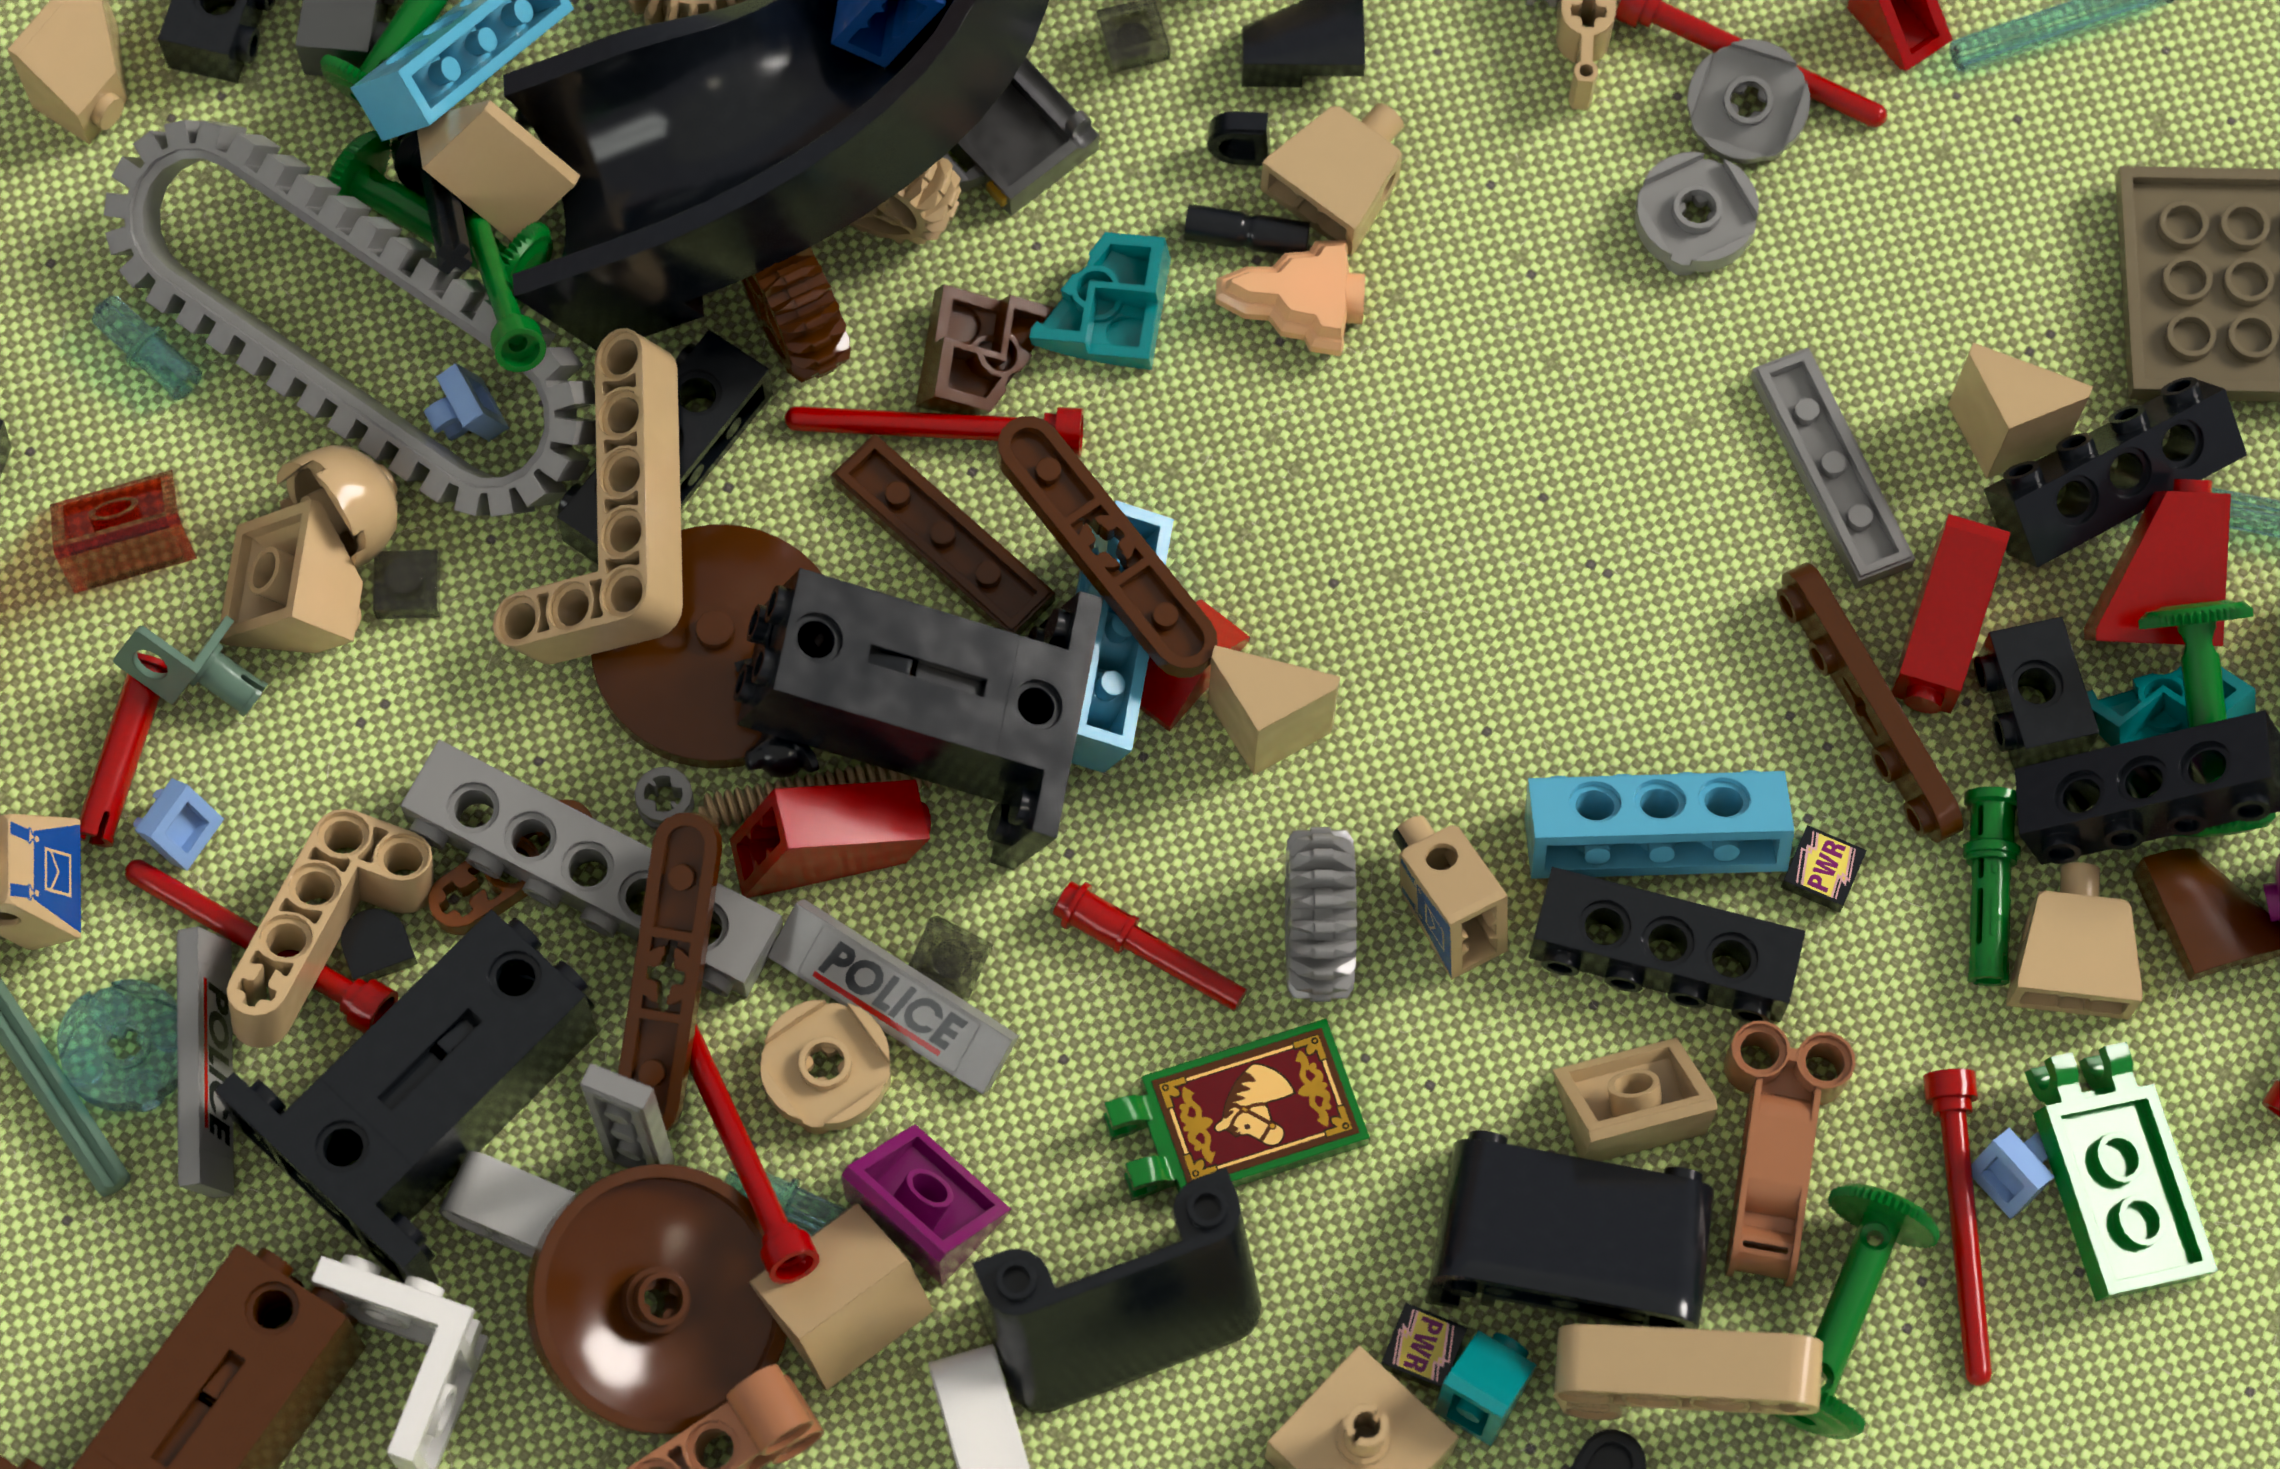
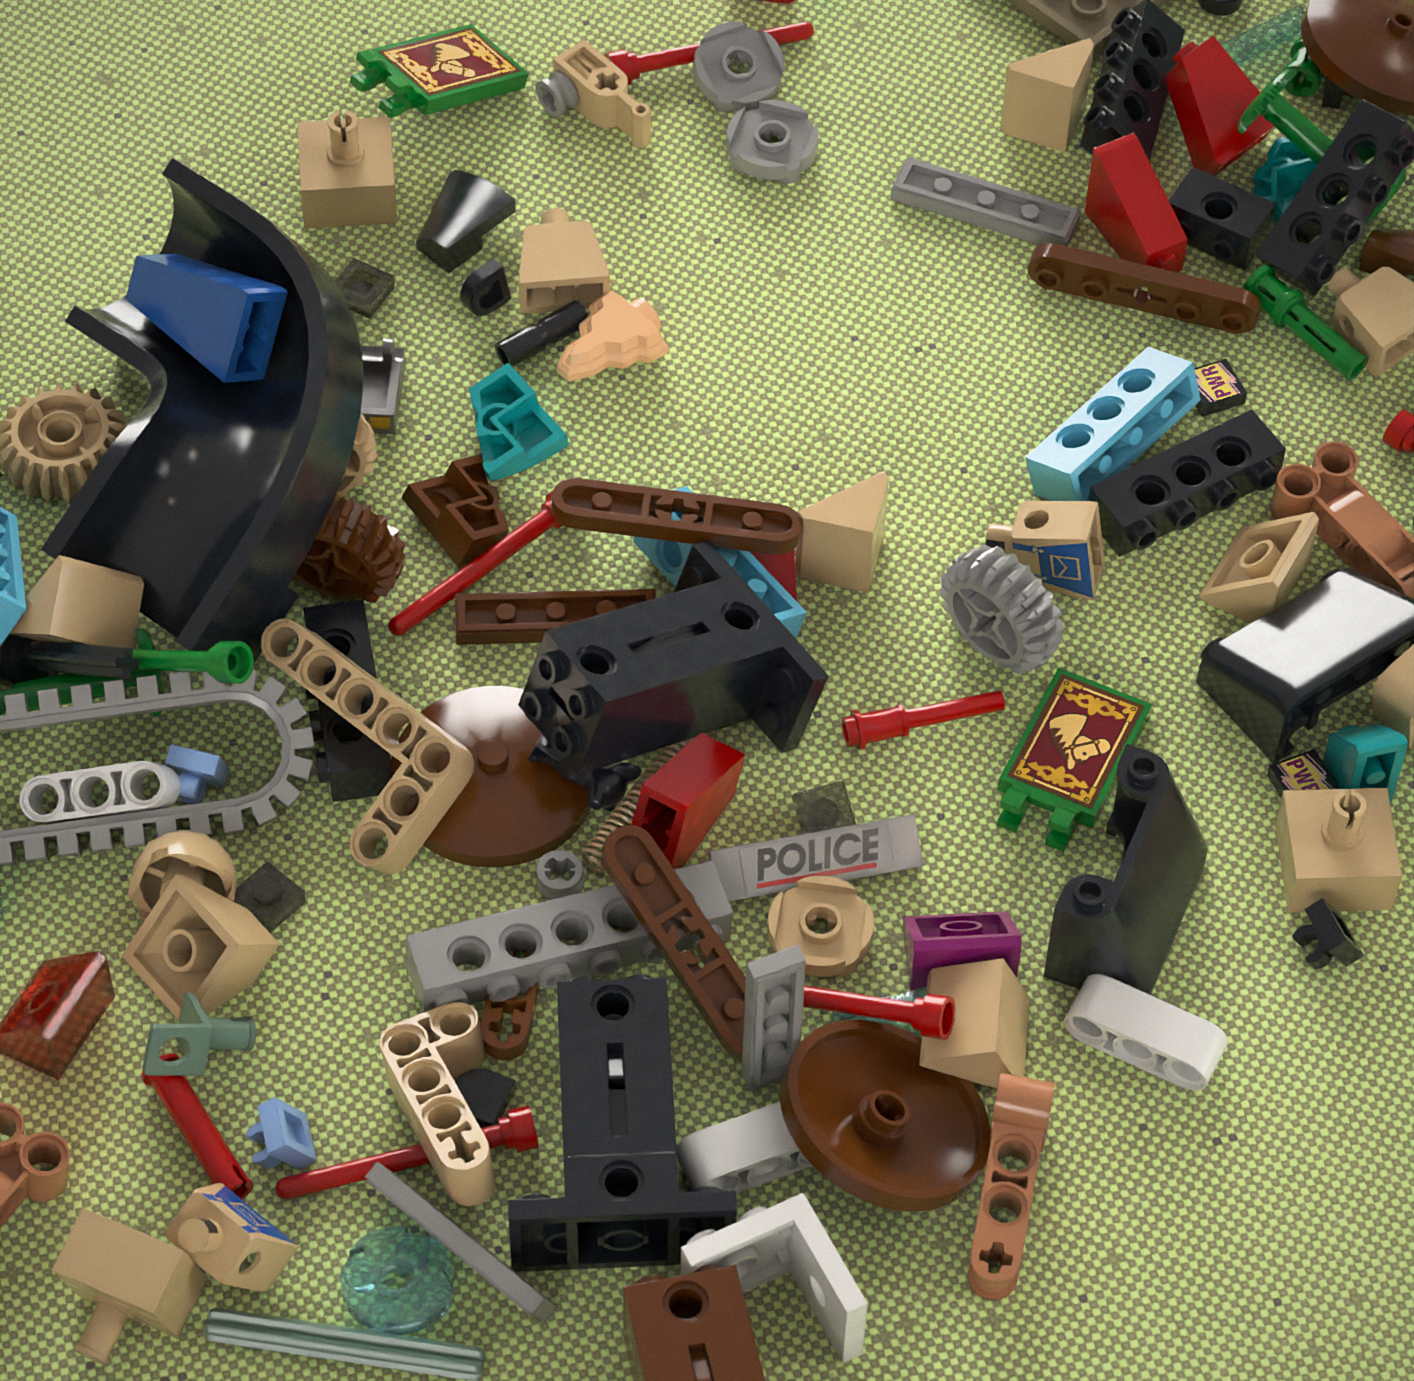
camera: 45 degrees left, 15 degrees down
(357, 355) = (76, 787): none -> white beam

